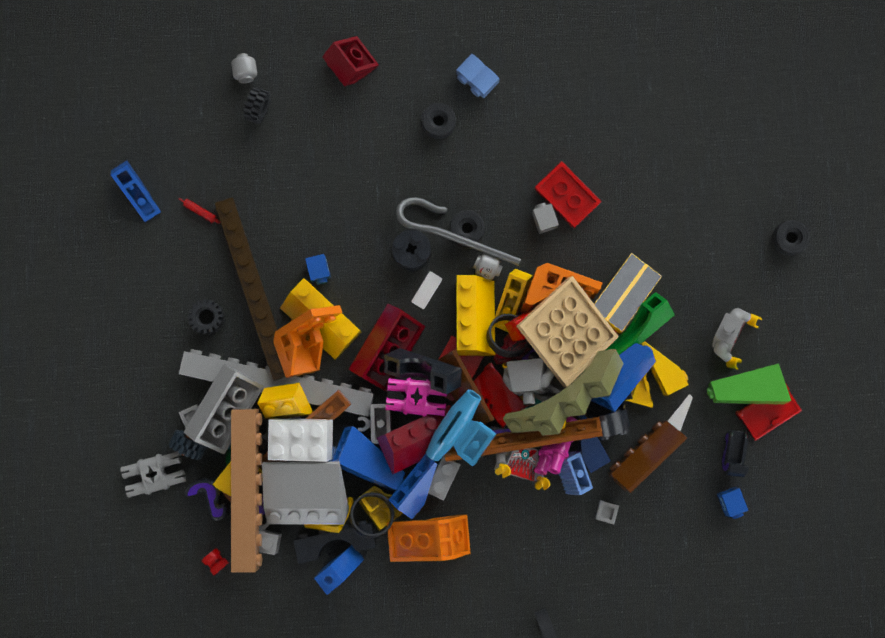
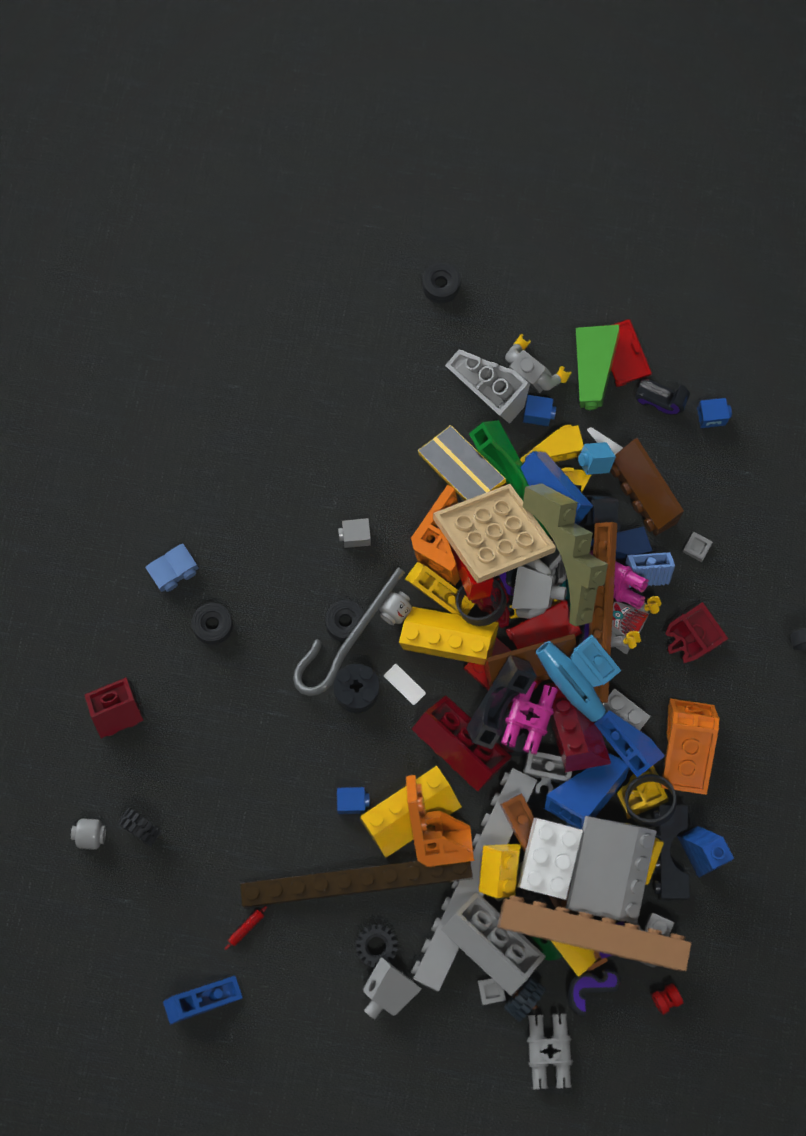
camera: 75 degrees left, 10 degrees down
(172, 334) = (388, 989): none -> light grey torso
(527, 525) = (695, 633): none -> dark red plate
(567, 194) = (334, 502): red plate -> none
(662, 407) = (596, 458): none -> dark azure brick
(694, 348) = (539, 410): none -> blue brick
(707, 303) = (496, 385): none -> light grey wedge

